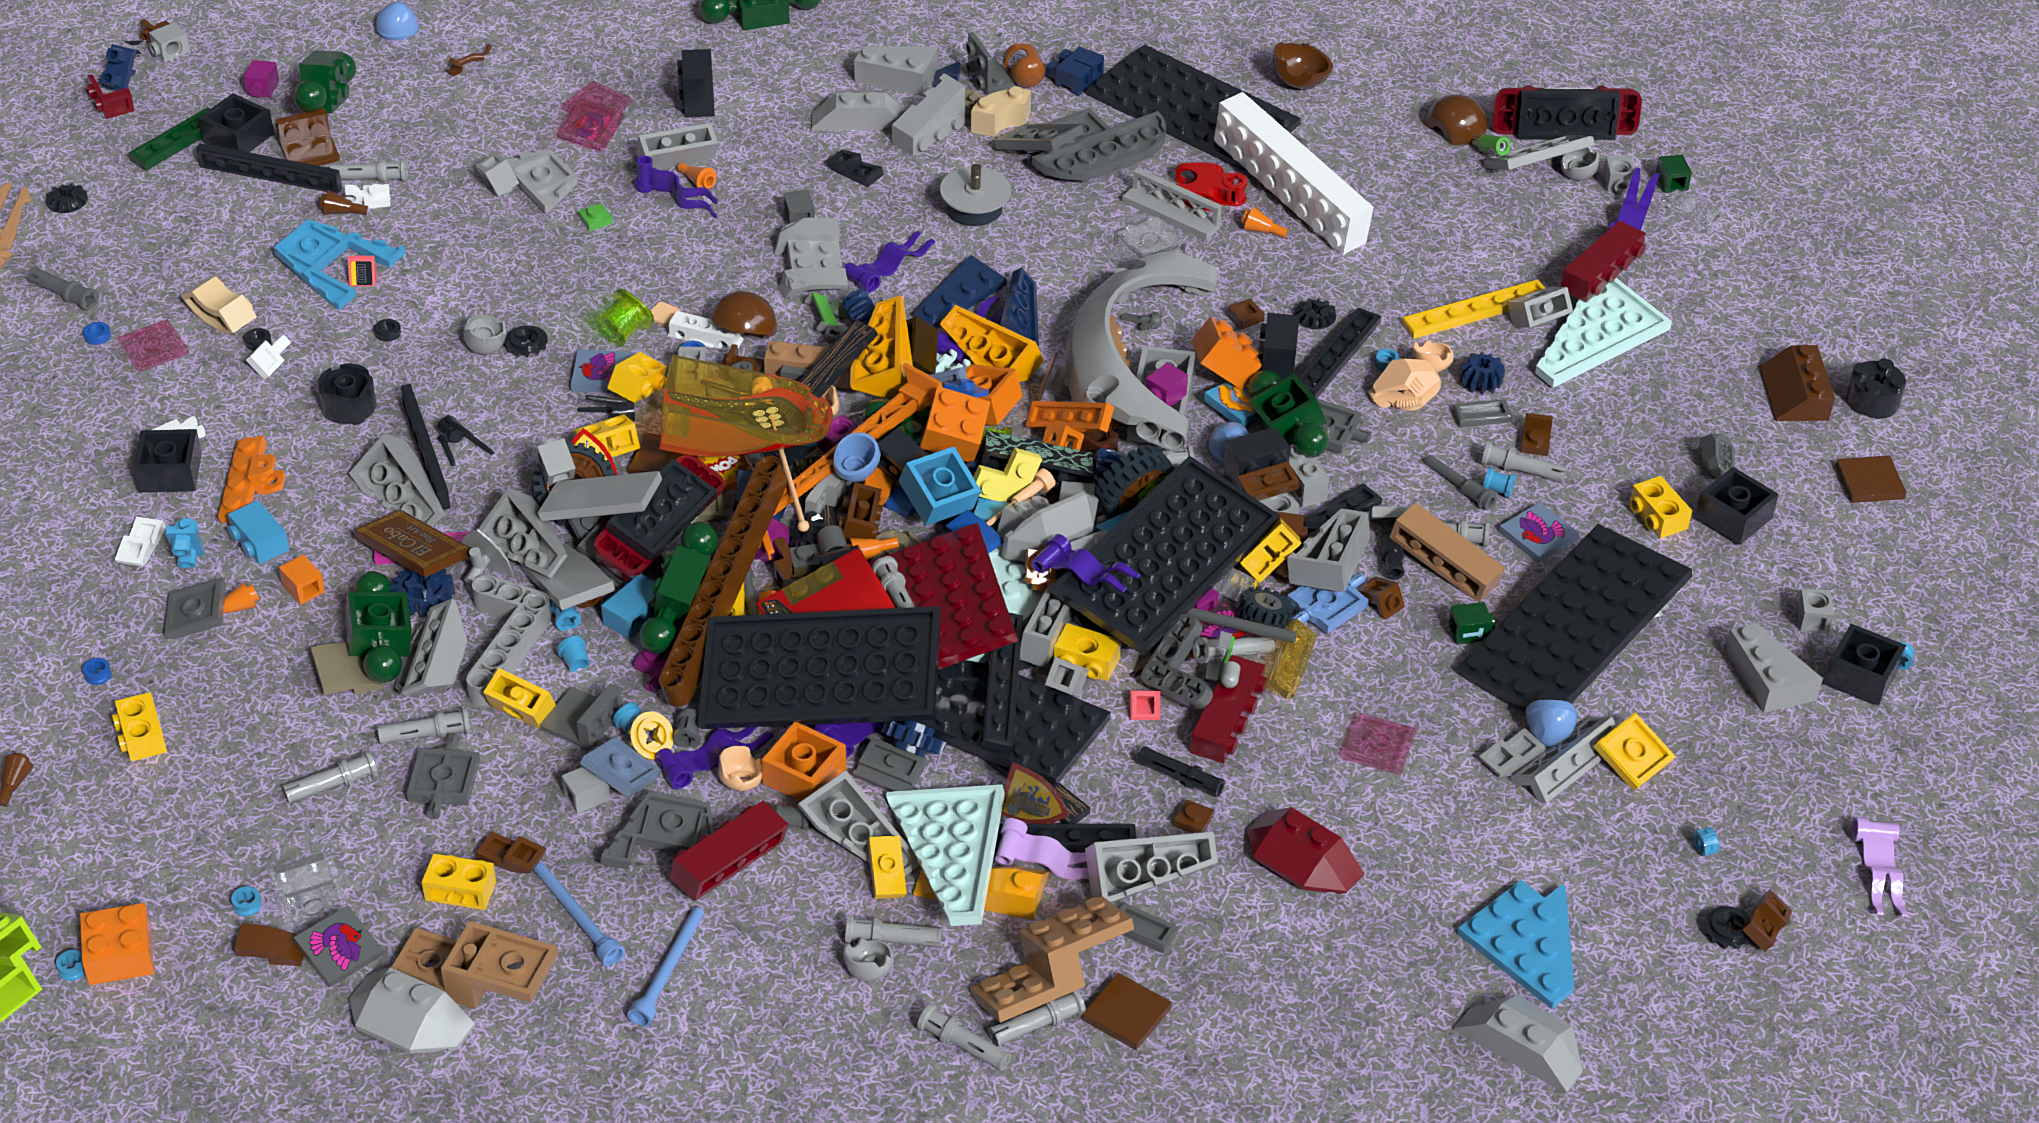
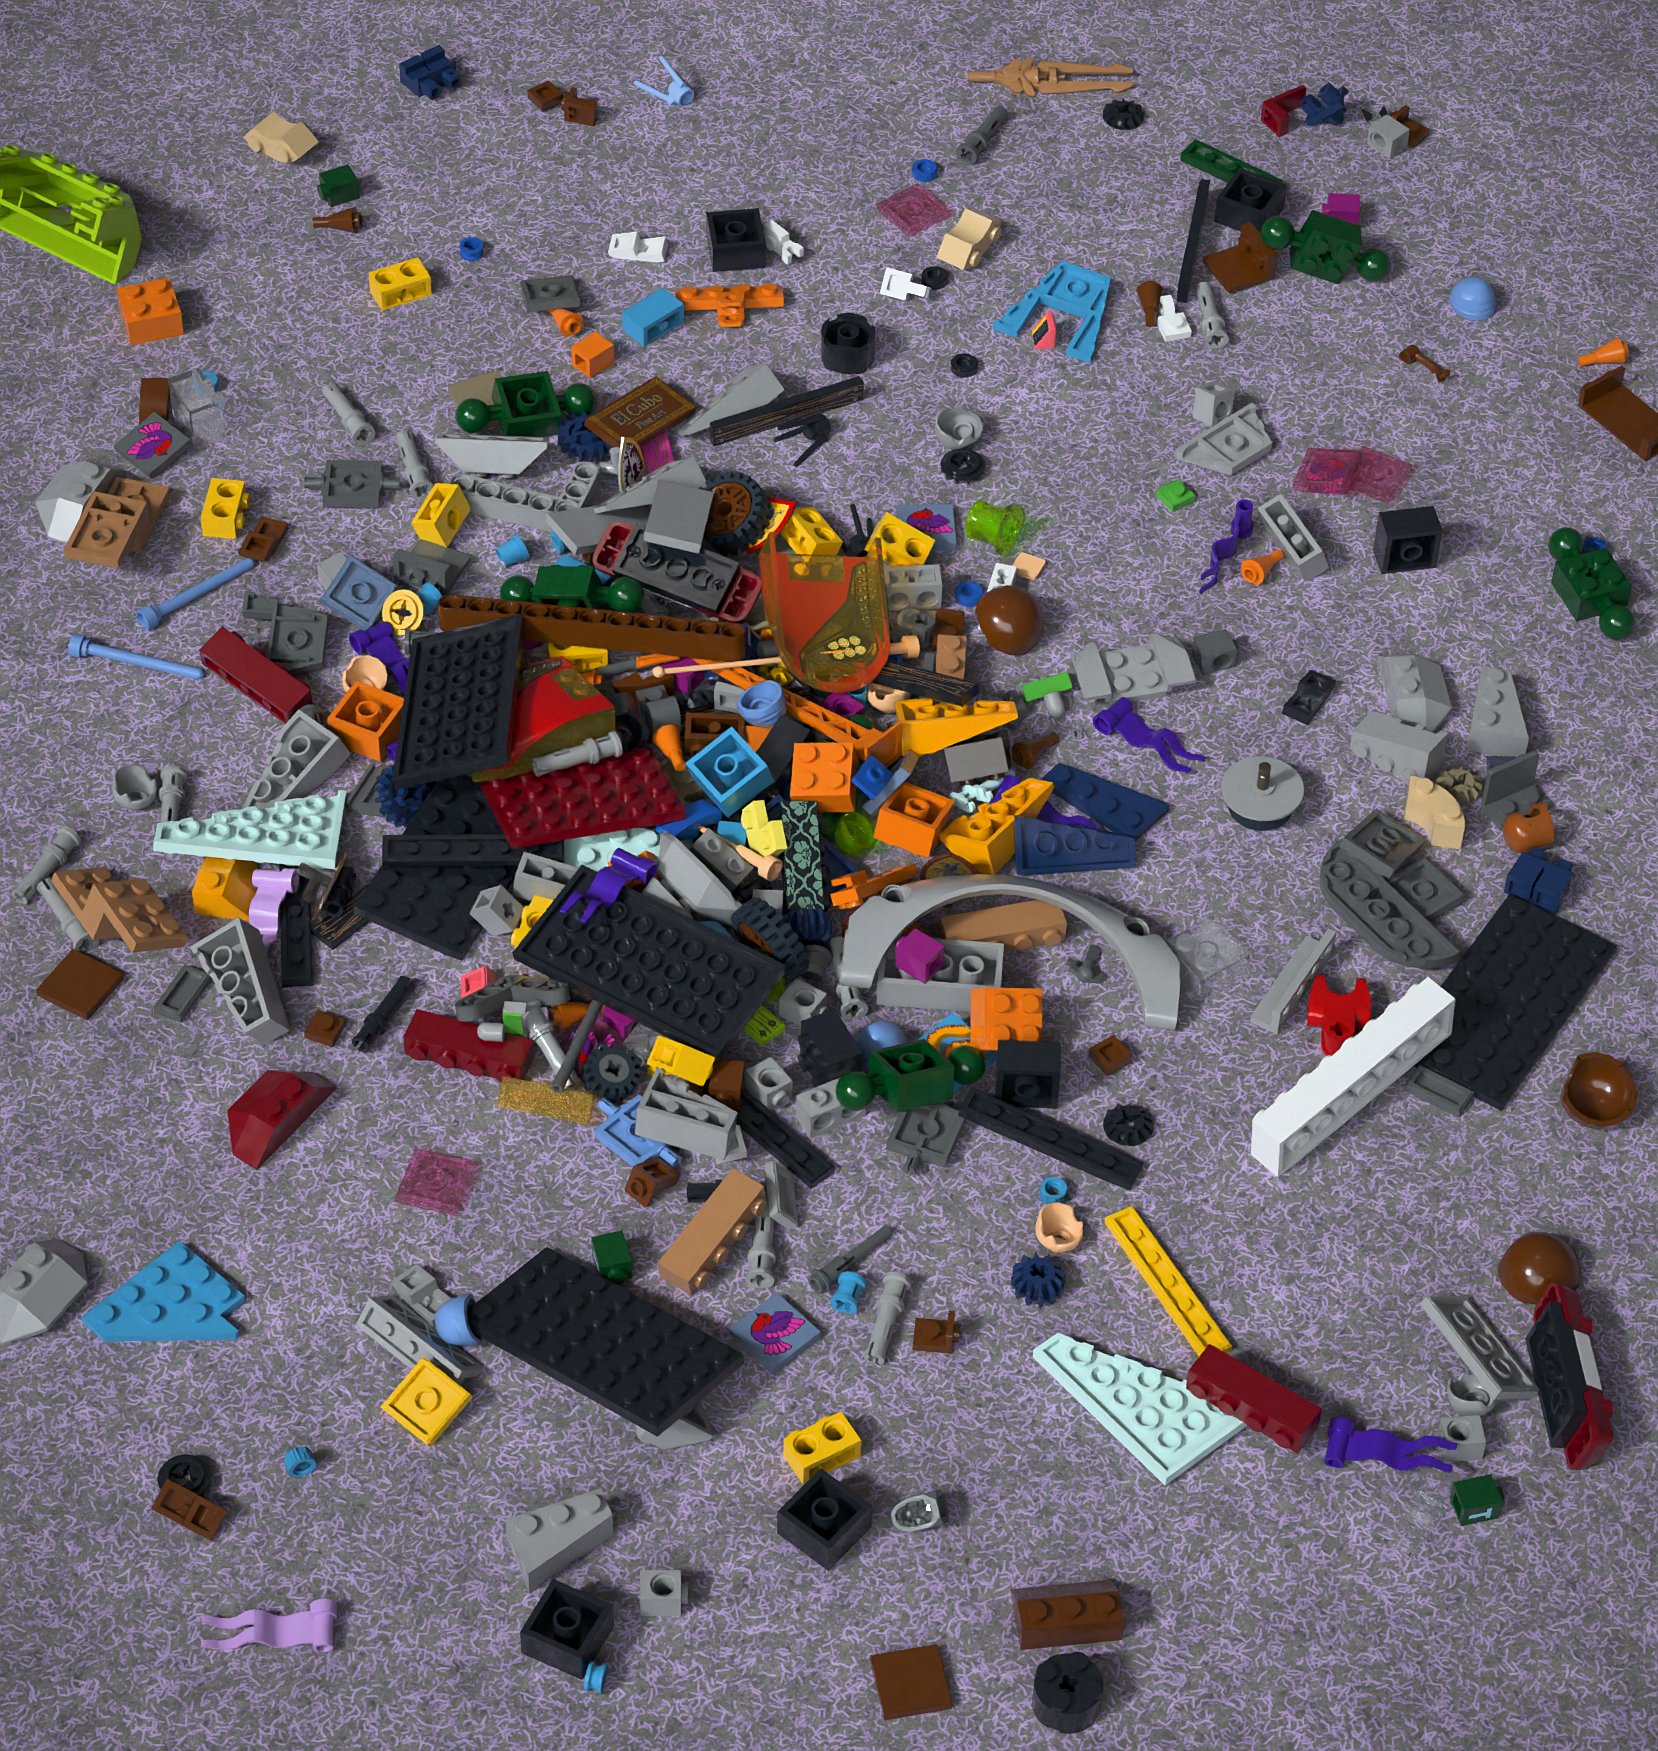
camera: 85 degrees right, 5 degrees up
(185, 542) = (628, 267): dark azure hips -> none
(555, 461) = (727, 479): light grey brick -> none
(858, 306) = (1038, 711): dark blue gear -> none
(887, 867) = (246, 792): yellow plate -> none
(1257, 221) = (1285, 1061): orange cone -> none
(1269, 481) = (791, 1060): reddish brown plate -> none
(1414, 377) = (1004, 1205): light nougat helmet -> none
(1482, 413) = (975, 1284): dark grey tile -> none
(1492, 144) = (1485, 1298): bright green piece -> none
(1540, 306) = (1163, 1336): light grey brick -> none

